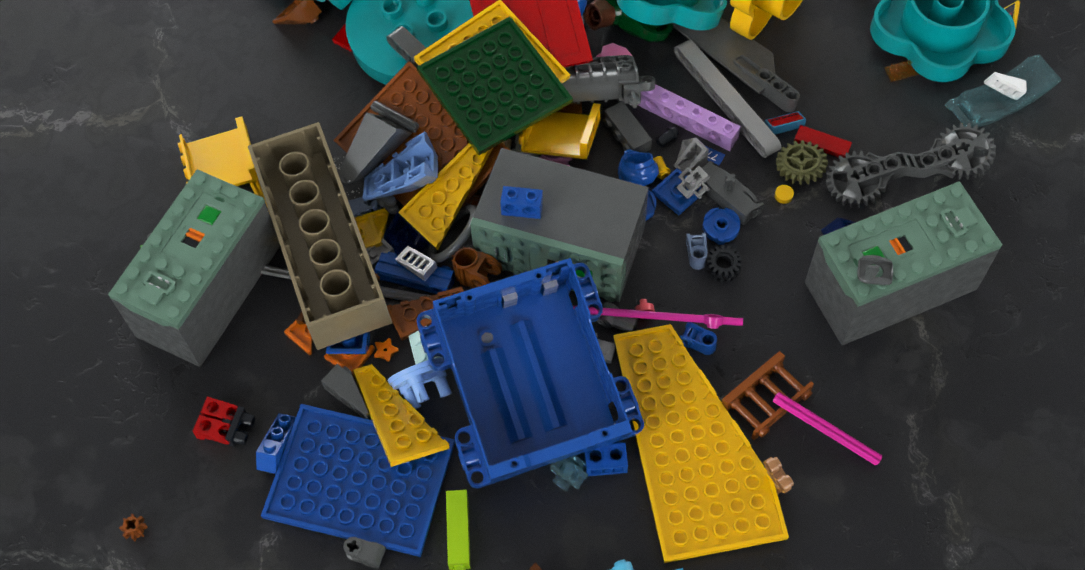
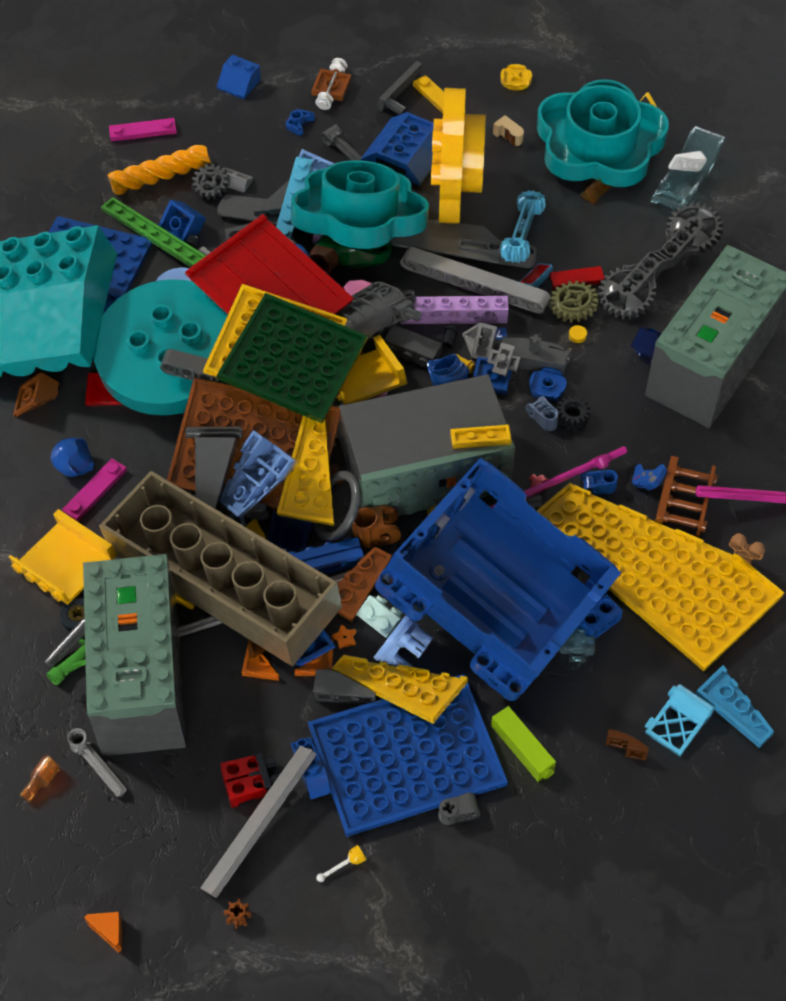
camera: 35 degrees left, 5 degrees down
(34, 477) = (108, 927): none -> orange slope
(77, 326) = (40, 777): none -> clear orange arm
(123, 344) = (85, 749): none -> light grey axle
(200, 462) = (258, 821): none -> light grey tile
(256, 538) = (355, 856): none -> hinge
(286, 79) = (72, 457): none -> blue helmet
(286, 115) = (94, 489): none -> dark pink plate
(424, 274) = (322, 553): white slope -> none
(521, 202) = (397, 438): blue brick -> none
(598, 239) = (480, 436): none -> yellow tile
(745, 360) = (648, 478): none -> blue piece
(778, 86) = (517, 248): none -> medium azure arm
(868, 269) = (725, 338): dark grey piece -> none

